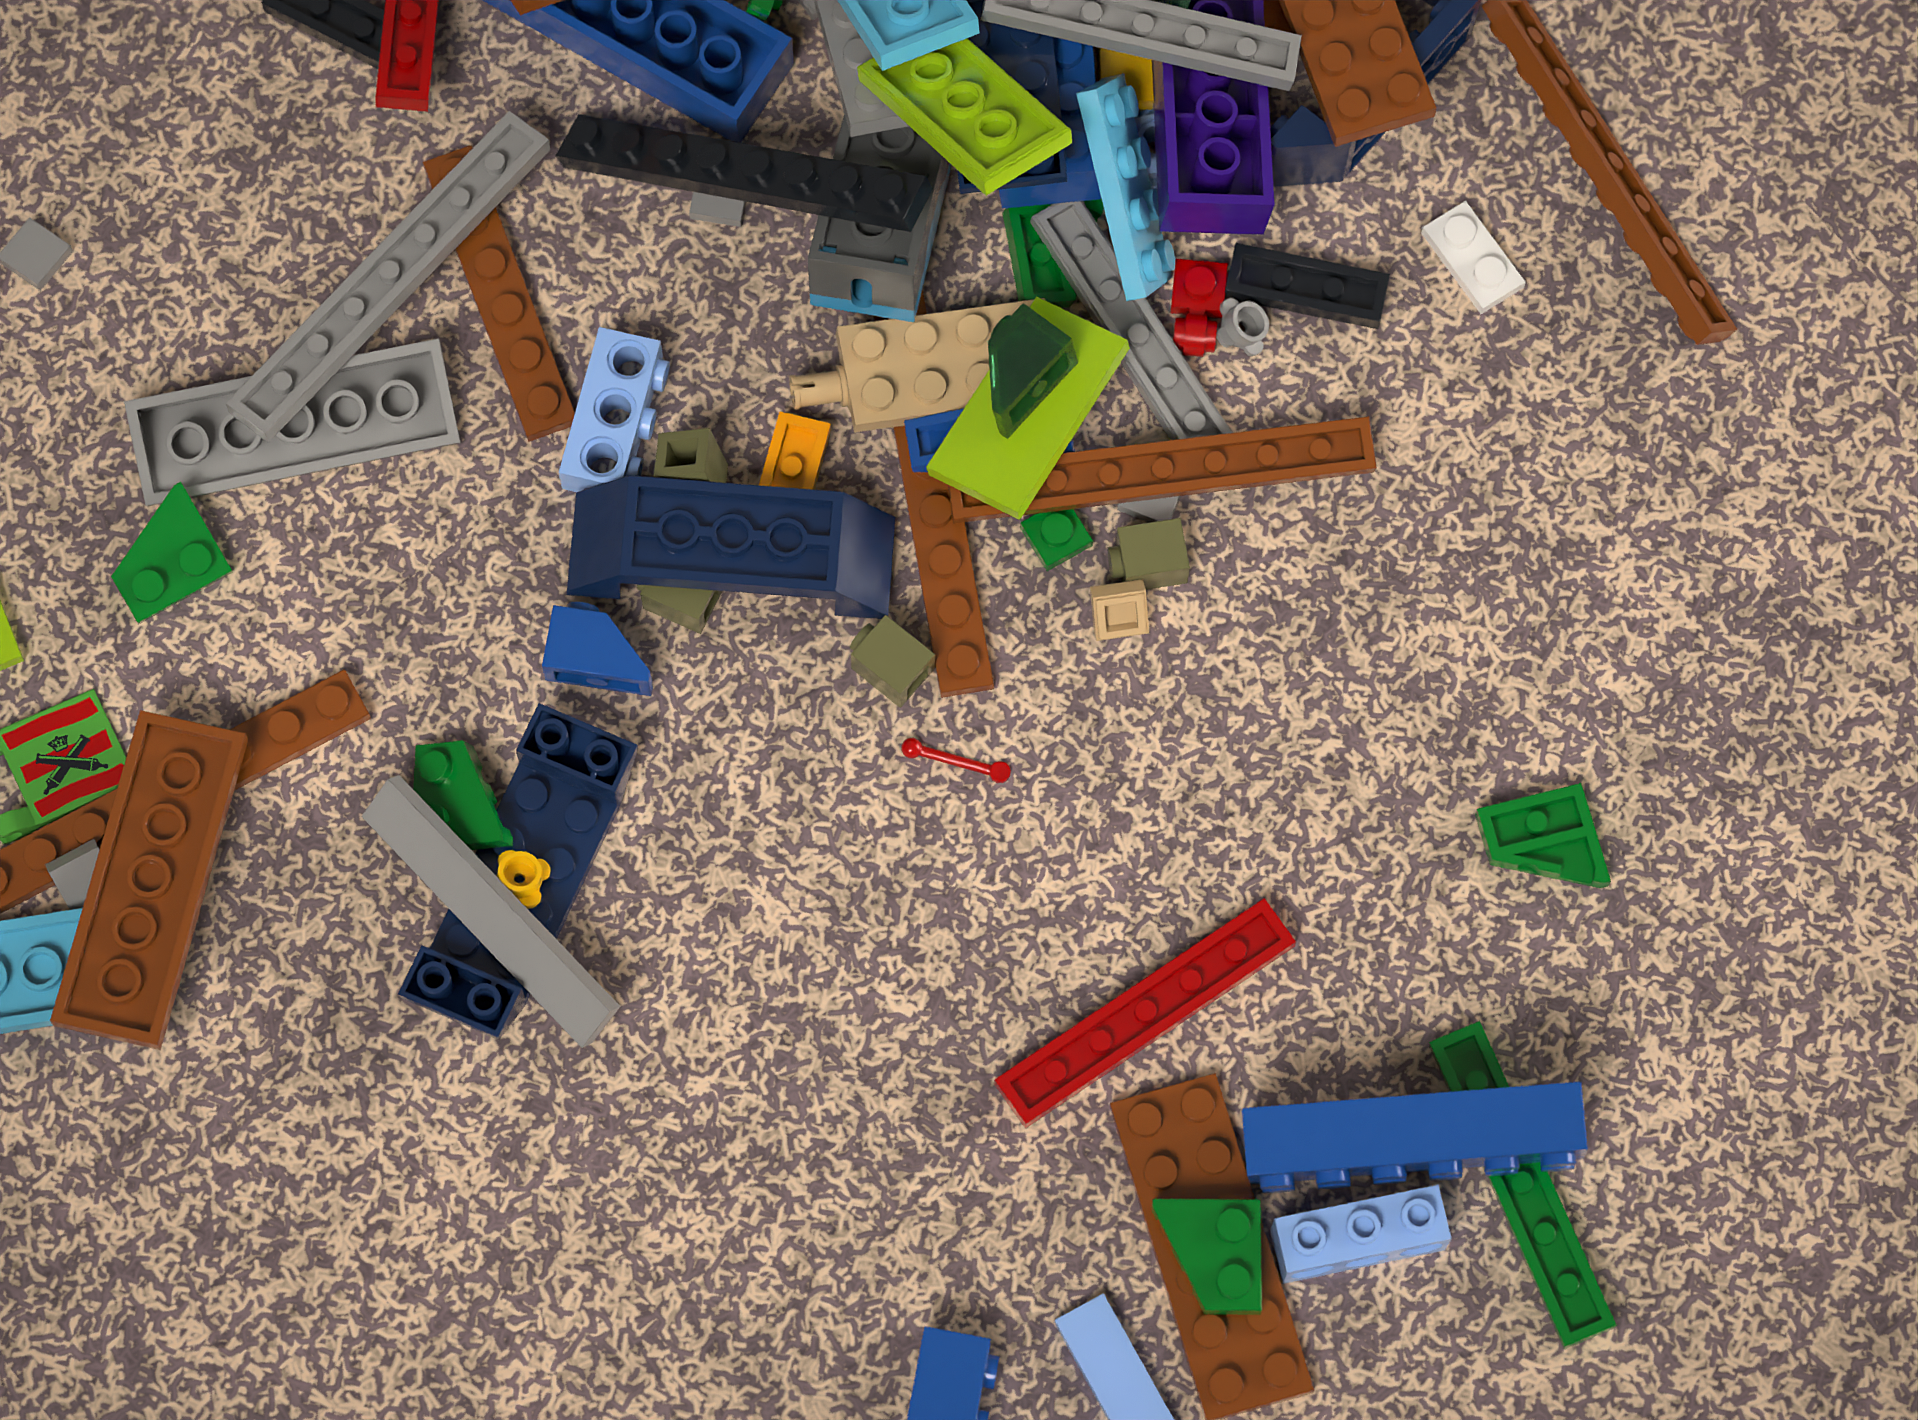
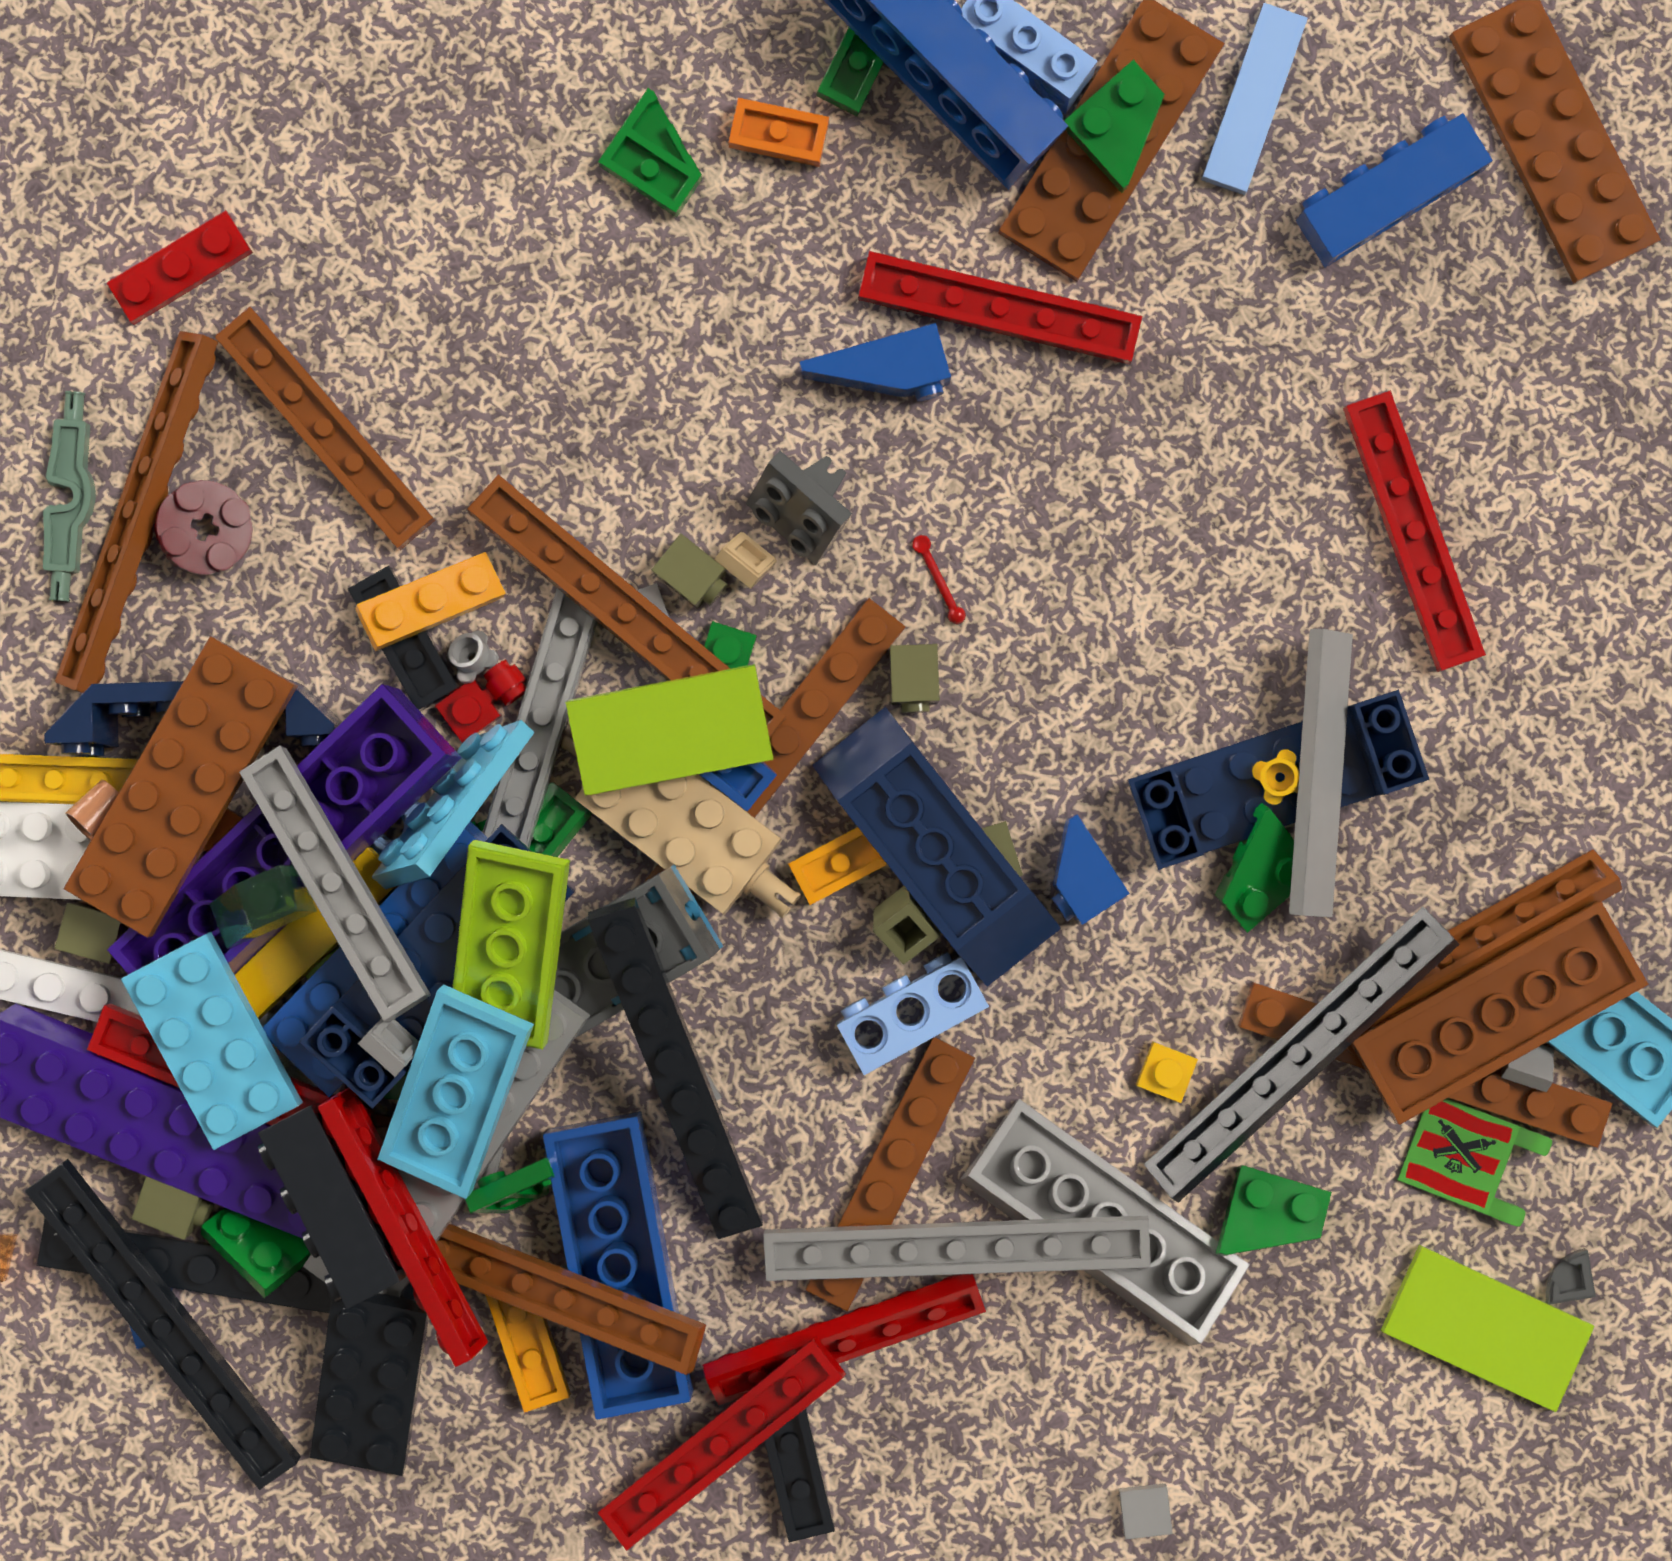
camera: 130 degrees left, 15 degrees up
(220, 938) = (1516, 920): none -> dark orange plate
(274, 688) = (1301, 1054): none -> plate
(365, 580) = (1166, 1072): none -> yellow plate
(401, 146) = (851, 1334): none -> red plate
(620, 1193) = (1414, 531): none -> red plate
(1025, 365) = (649, 751): clear green slope -> none
(1123, 688) = (801, 504): none -> dark grey plate
(1176, 872) = (892, 365): none -> blue slope
(1318, 328) = (430, 601): none -> light orange plate
(1472, 961) = (778, 132): none -> orange plate
(1473, 257) = (282, 548): white plate -> none
(1546, 372) = (325, 428): none -> dark orange plate
(1575, 211) = (180, 541): none -> plate
(1694, 147) = (66, 522): none -> sand green piece
(1793, 375) = (179, 267): none -> red plate

